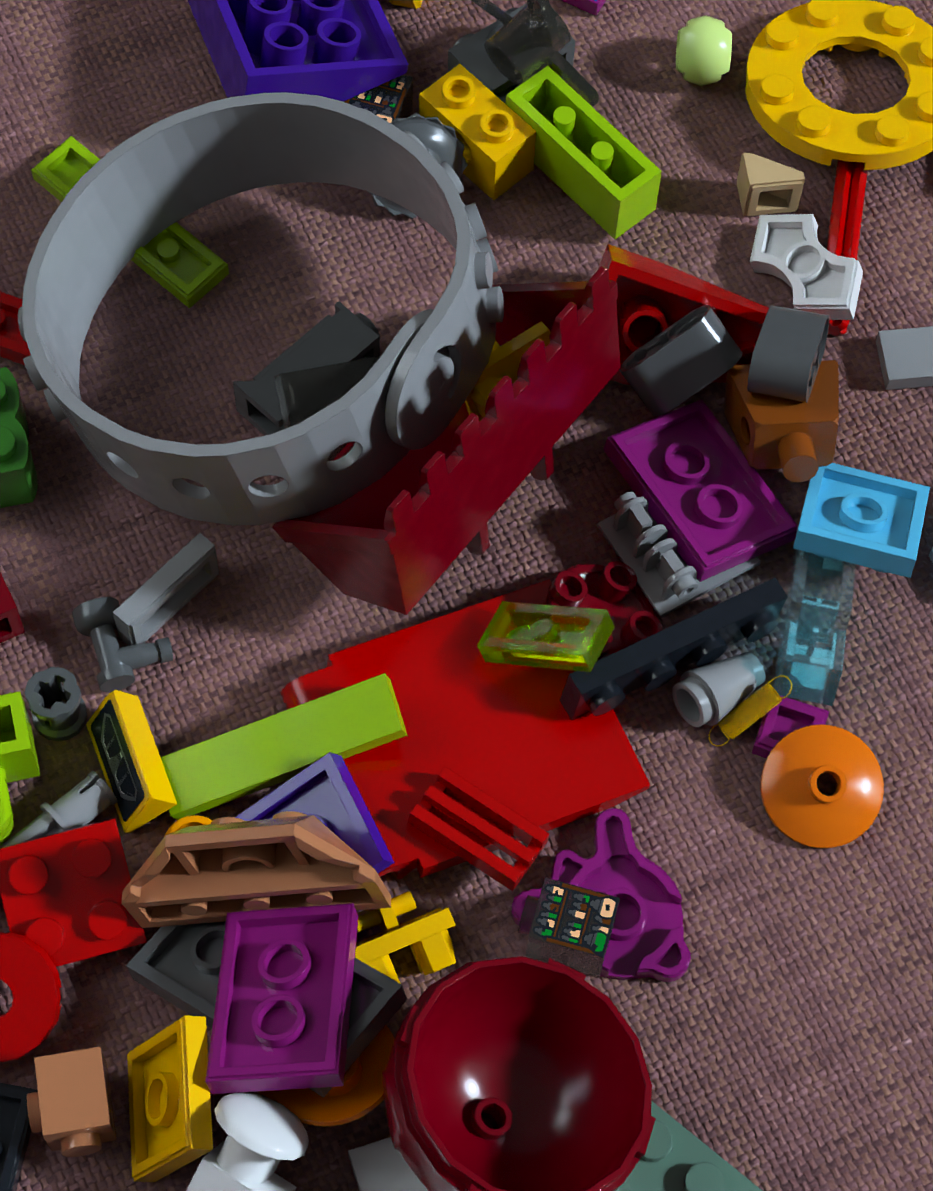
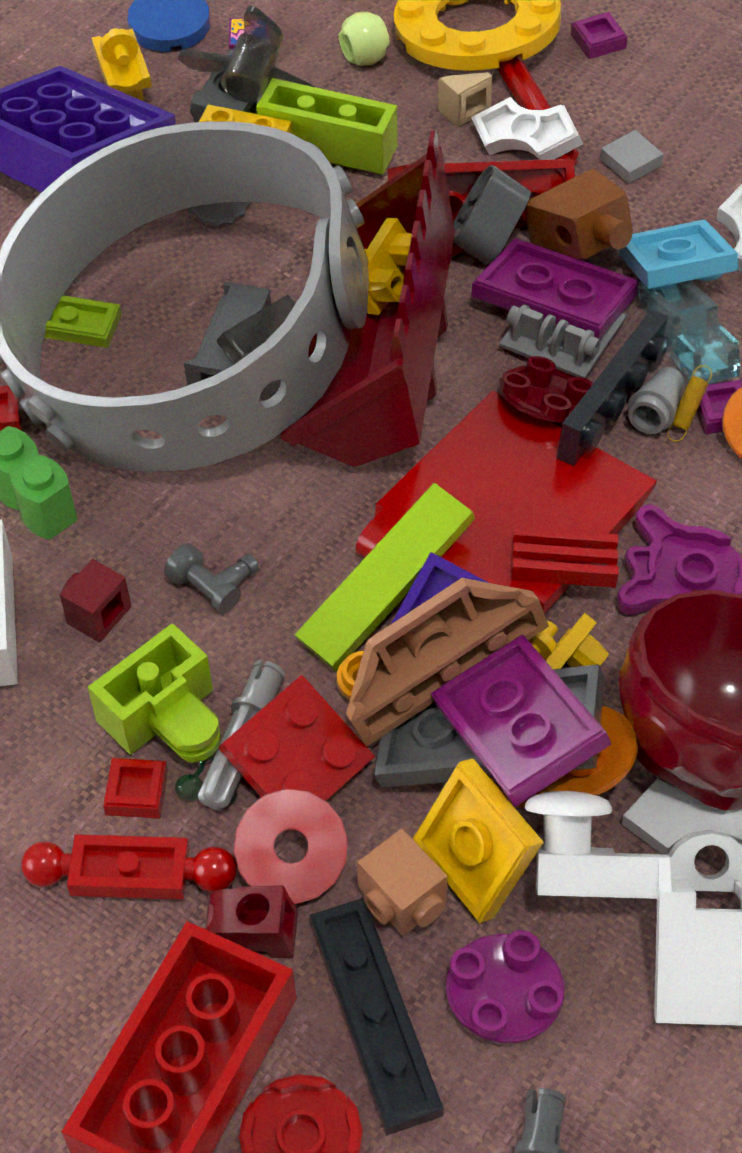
camera: 25 degrees left, 10 degrees down
(47, 689) = (203, 631): dark grey bush -> none
(130, 760) = (268, 637): slope -> none
(167, 591) = (226, 521): light grey tile -> none
(546, 636) = (526, 412): clear neon green plate -> none
(569, 925) = (673, 573): brick -> none
(788, 353) = (564, 170): dark grey beam -> none

